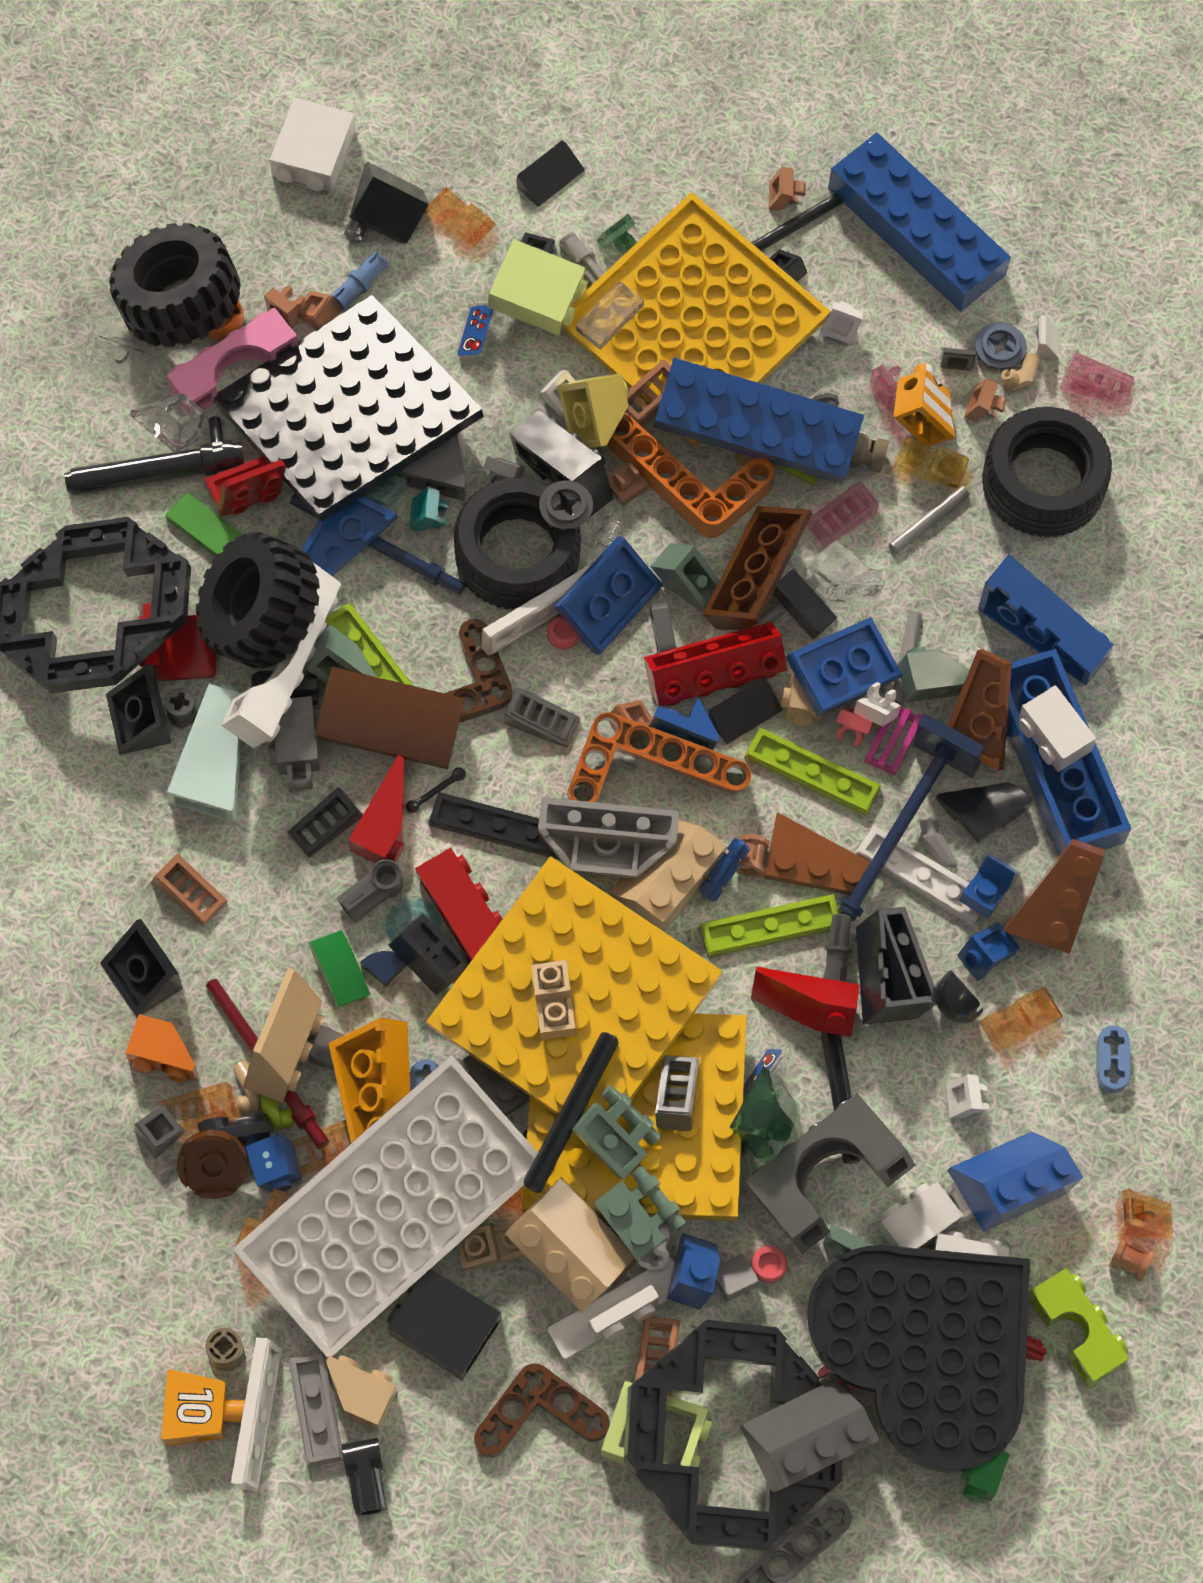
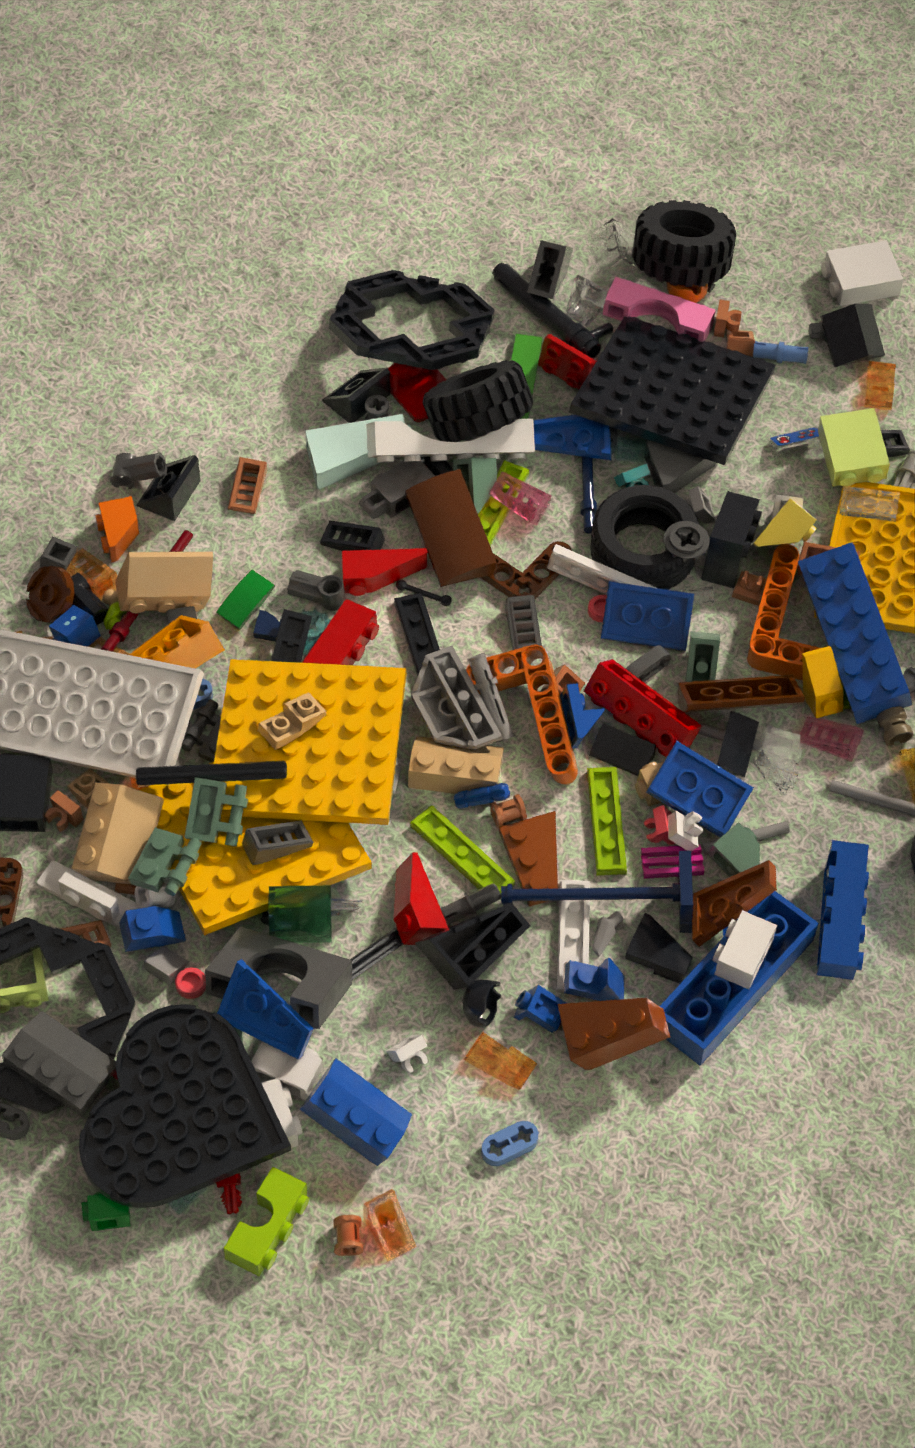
camera: 60 degrees right, 10 degrees down
(94, 996) = (131, 469): none -> dark grey piece
(113, 429) = (549, 269): none -> dark grey slope
(401, 611) = (516, 504): none -> clear pink slope
(496, 1284) = (65, 809): none -> nougat tile
(610, 792) = (487, 687): none -> light grey pin
(791, 484) = (822, 682): none -> yellow slope
(871, 1208) = (263, 1013): none -> blue wing

